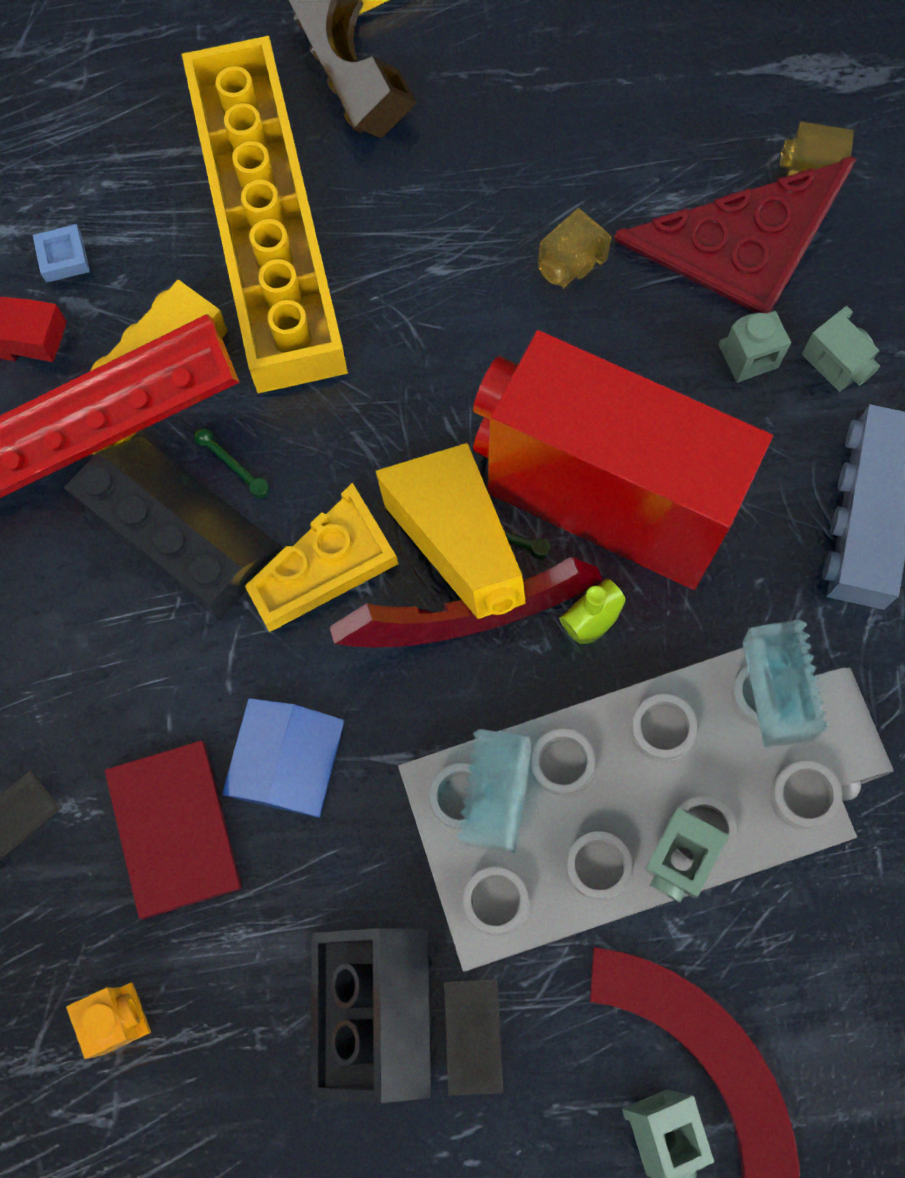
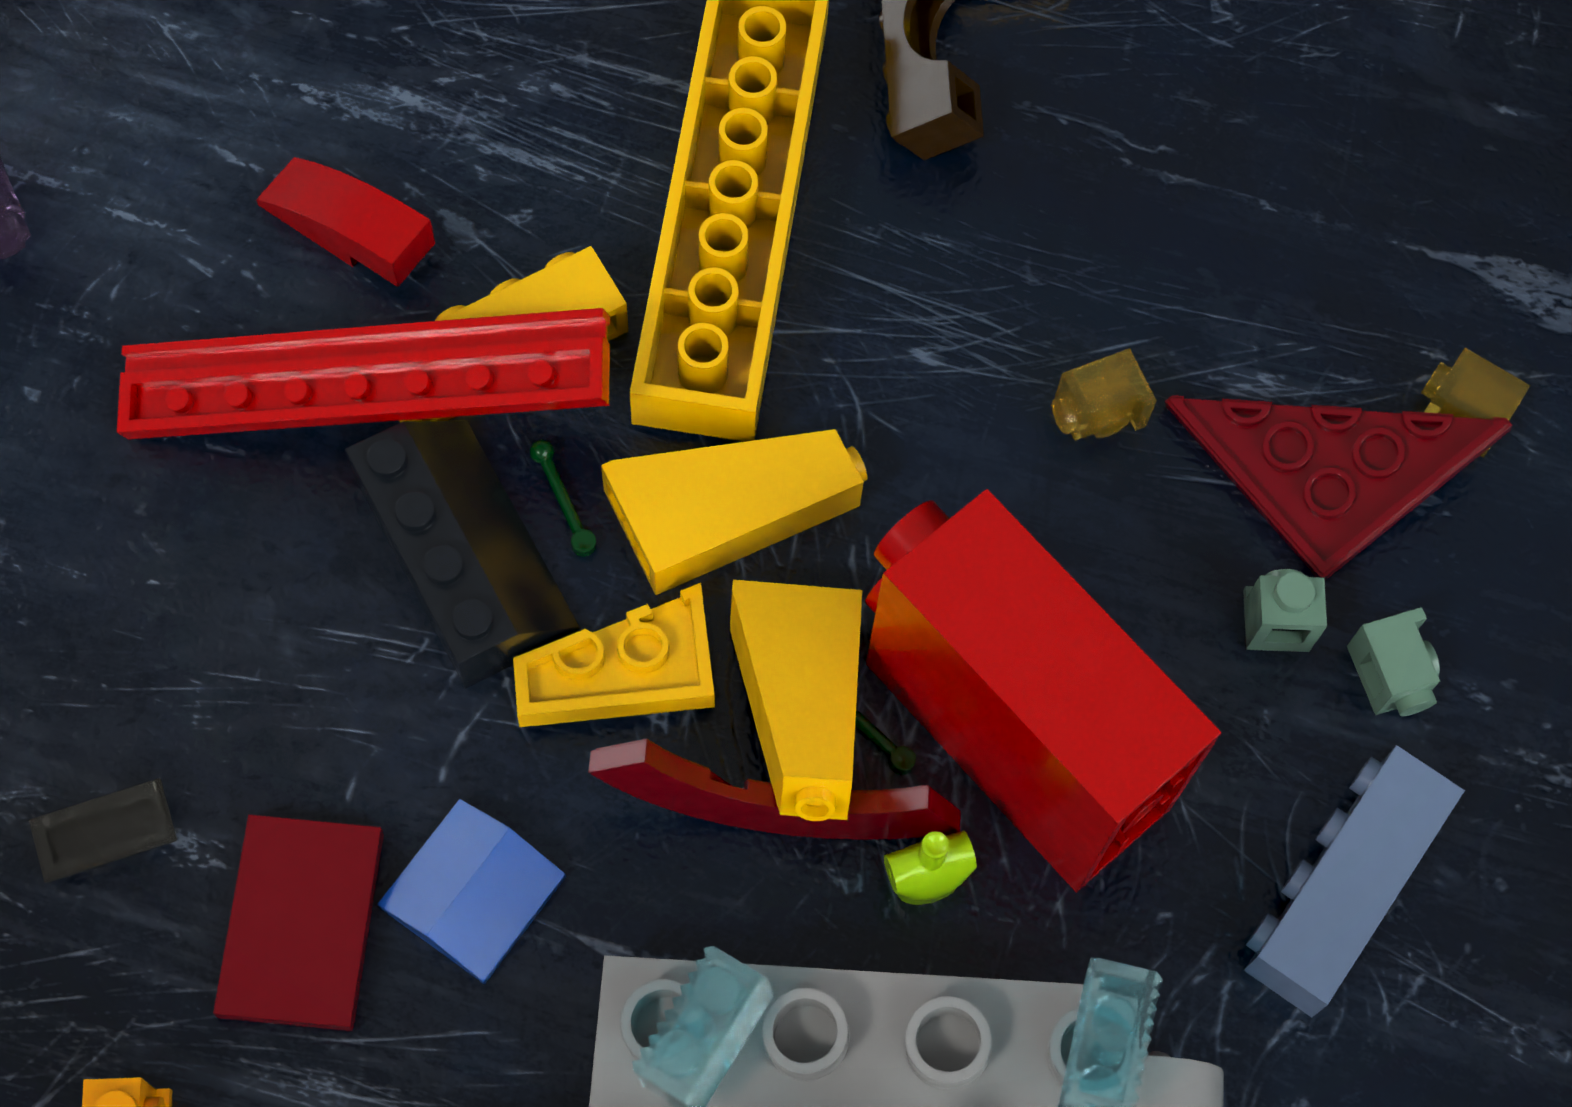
camera: 15 degrees right, 5 degrees down
(61, 253) = (464, 155): medium blue plate -> none
(346, 420) = (728, 500): none -> yellow slope

